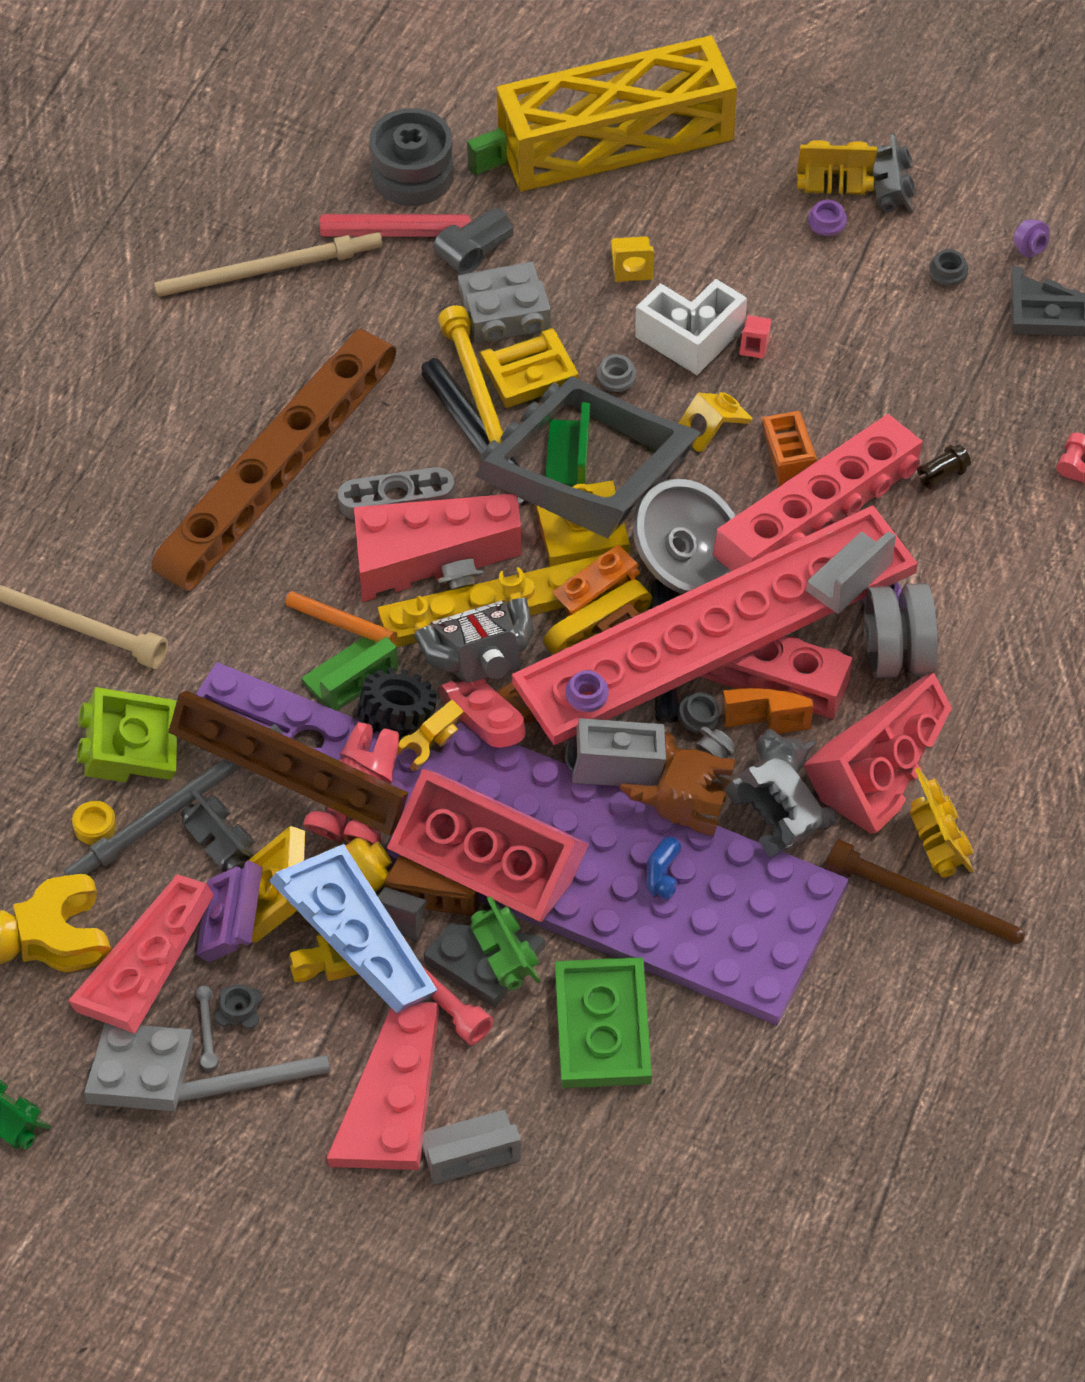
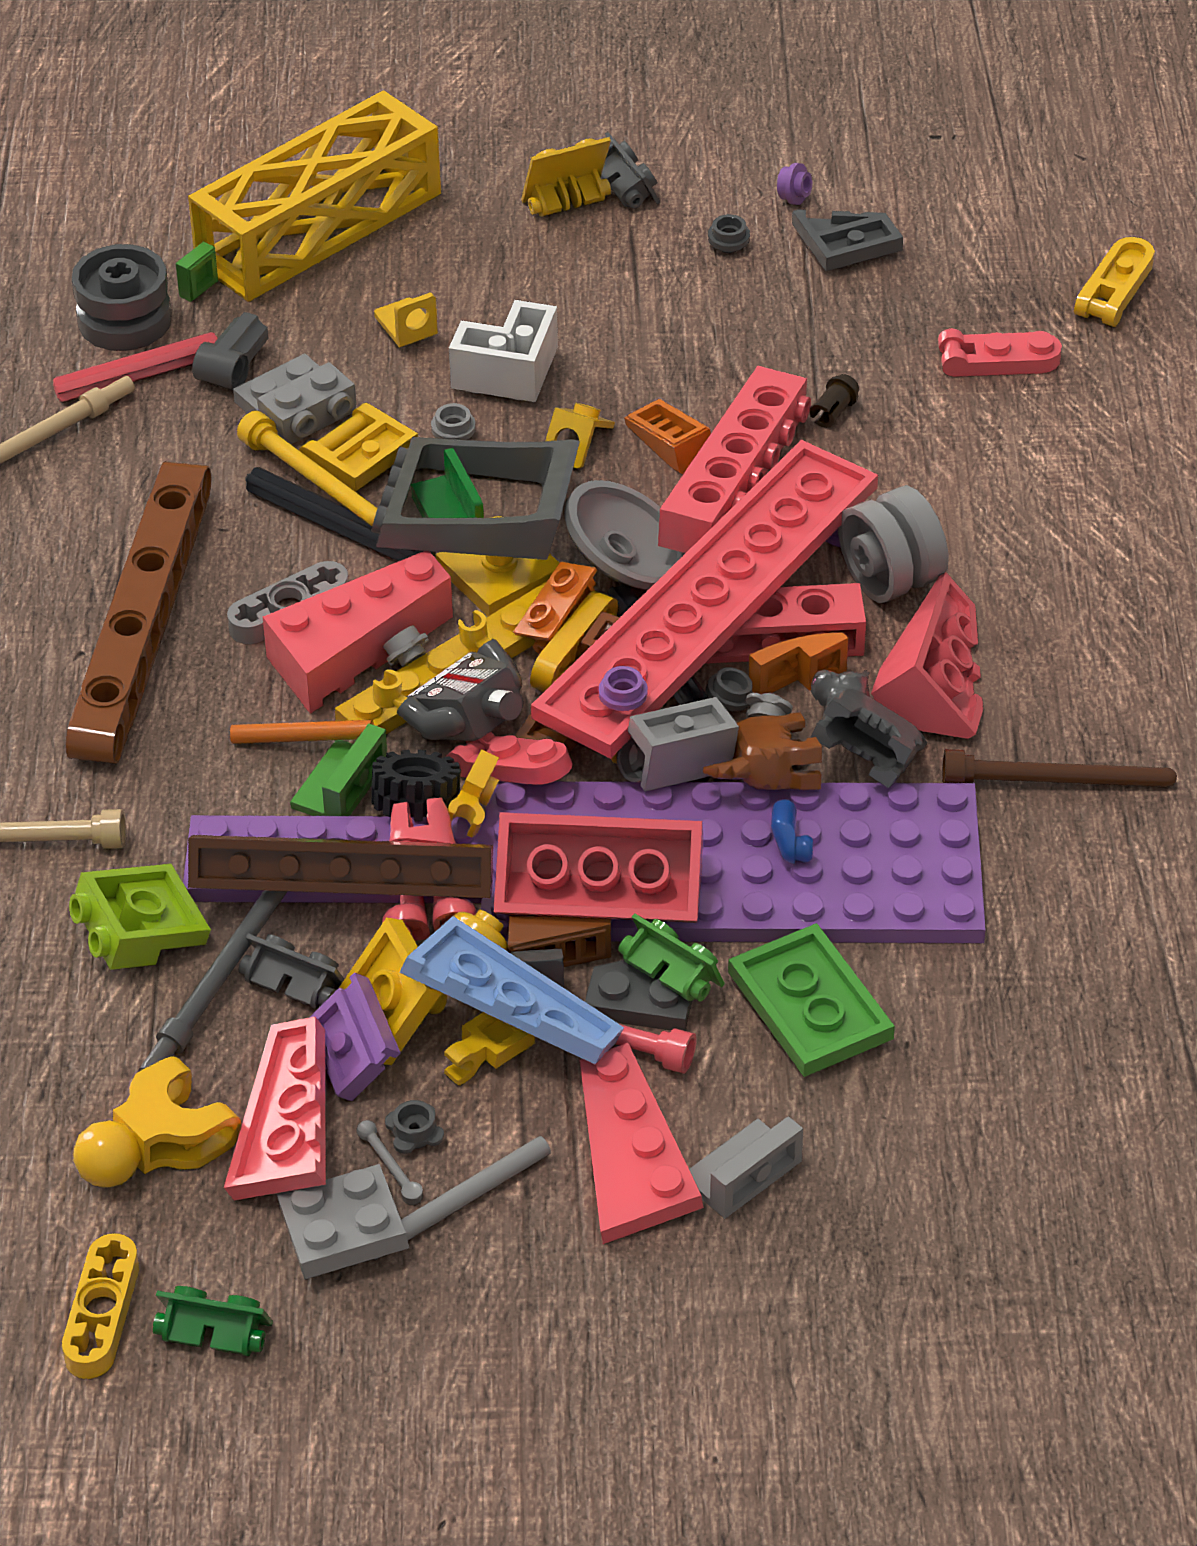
camera: 25 degrees left, 10 degrees down
(94, 821) = (143, 1012): yellow tile -> none
(755, 336) = (575, 347): coral piece -> none
(827, 218) = (581, 227): medium lavender plate -> none
(852, 570) = (821, 497): light grey panel -> none
(937, 827) = (1038, 703): yellow hinge -> none

